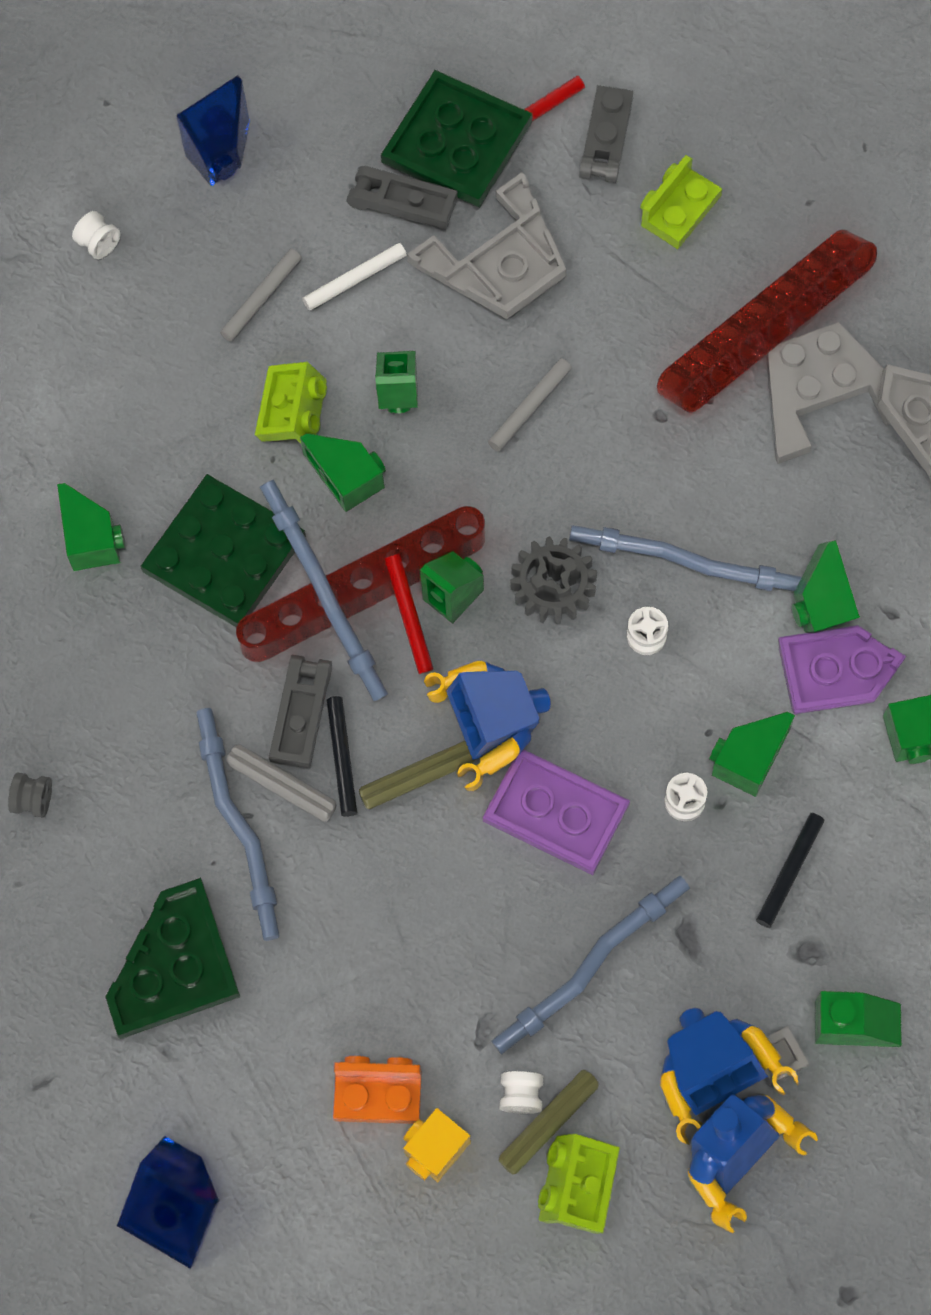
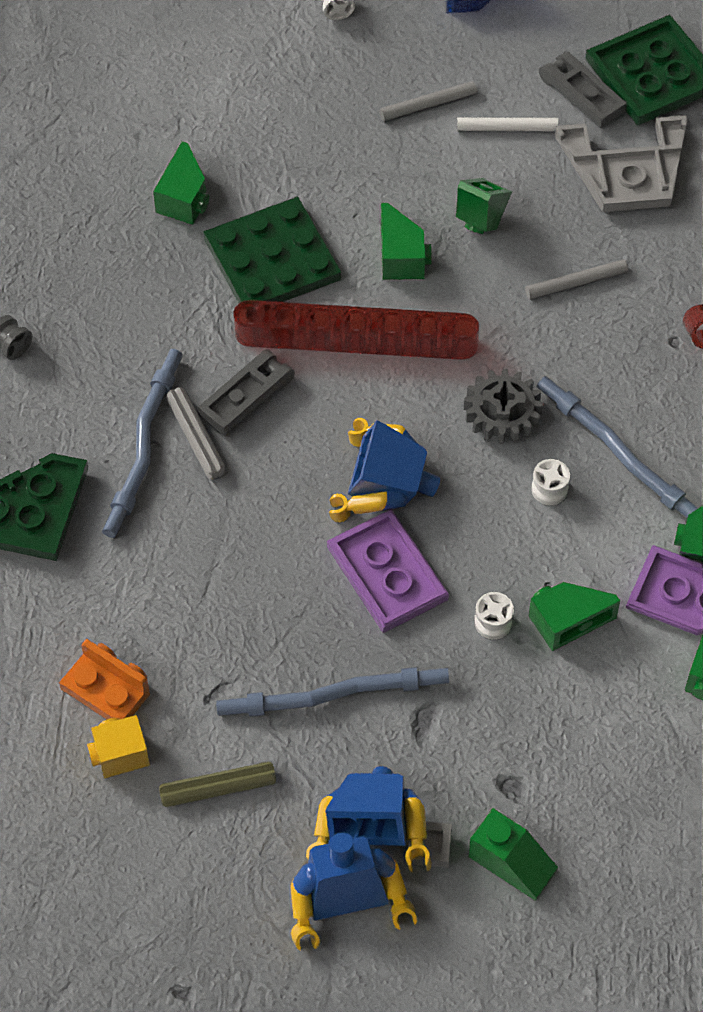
camera: 30 degrees right, 10 degrees down
(290, 402) = (396, 181): lime bracket -> none
(341, 756) = (254, 441): black bar -> none
(360, 660) = (314, 378): sand blue bar -> none
(409, 613) = (374, 365): red bar -> none
(415, 775) = (296, 483): olive axle -> none
(451, 584) = (421, 363): green slope -> none
(521, 1092) = (211, 748): white wheel -> none
(578, 1182) = (207, 839): lime bracket -> none
(790, 870) = (540, 717): black bar -> none

